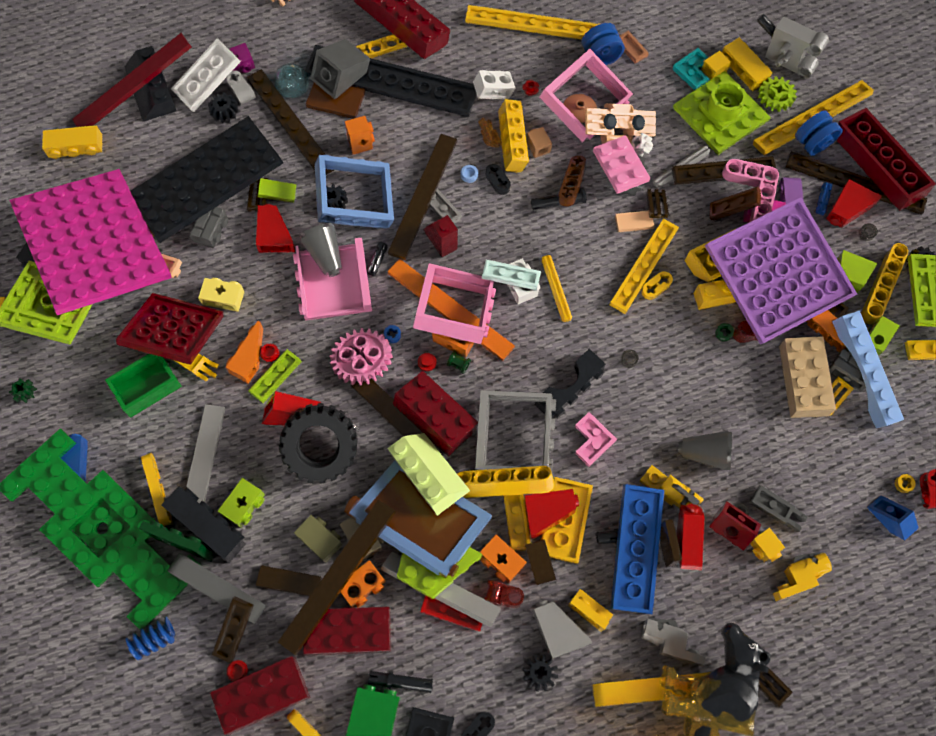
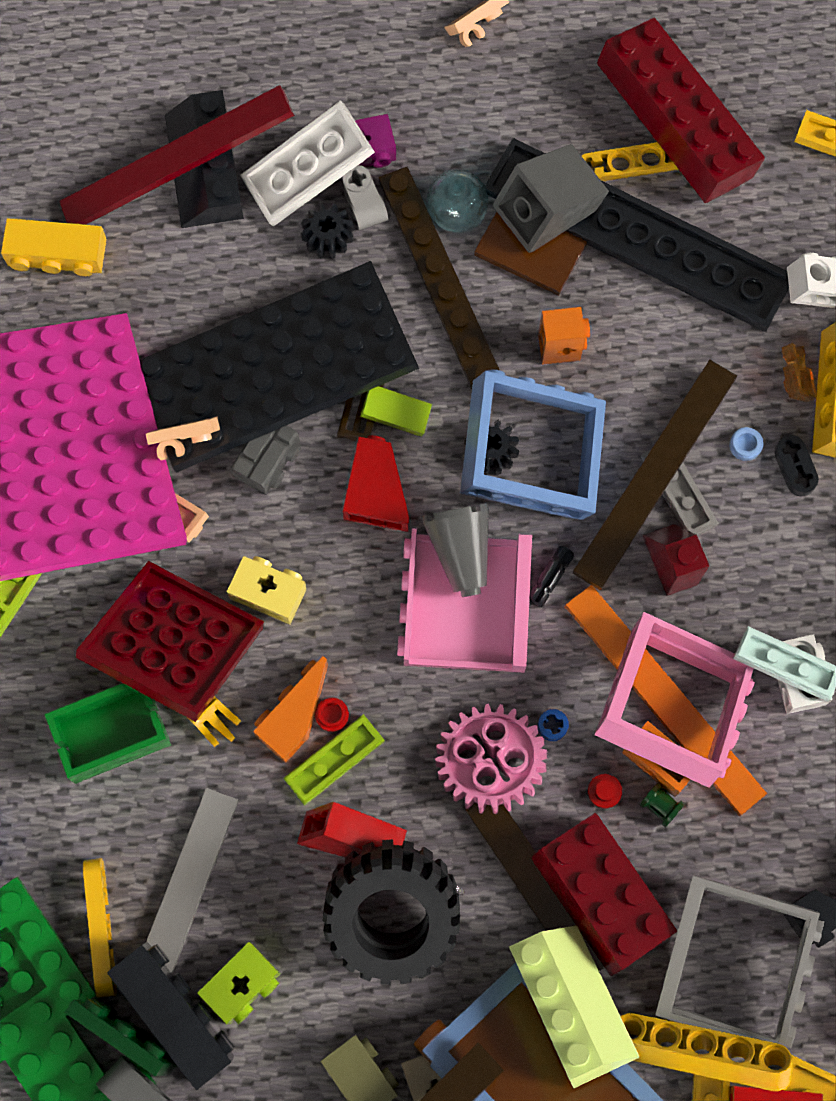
camera: 15 degrees right, 5 degrees up
(163, 215) = (197, 430): none -> light nougat plate

